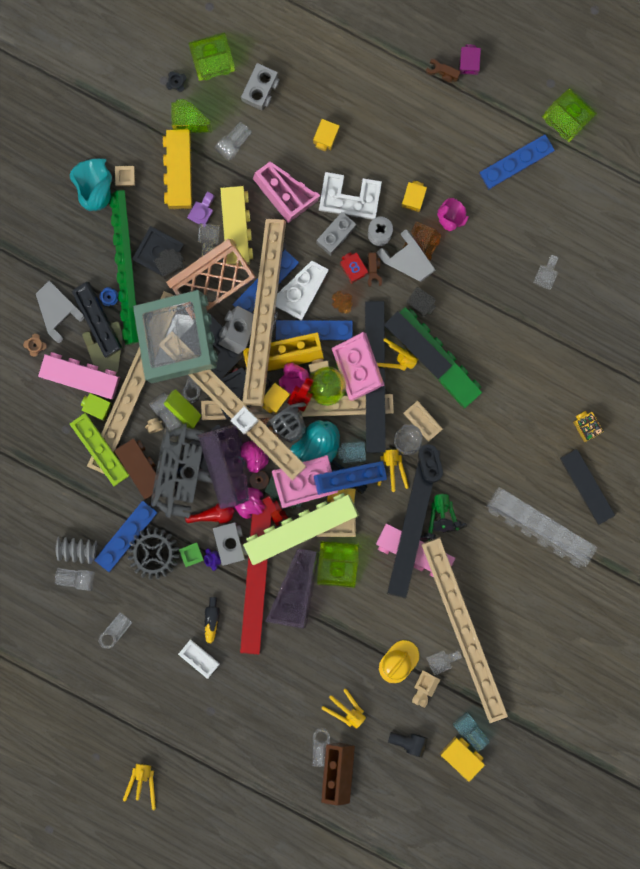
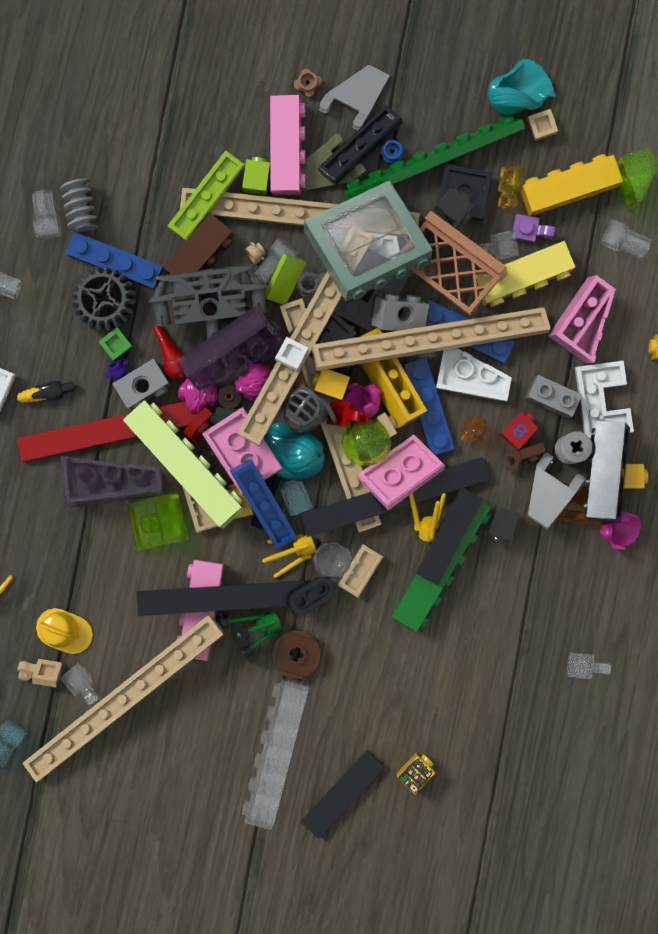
camera: 75 degrees right, 0 degrees up
(162, 214) = (510, 182): none -> clear yellow plate
(406, 210) = (607, 471): none -> brick
(481, 486) = (303, 666): none -> reddish brown plate

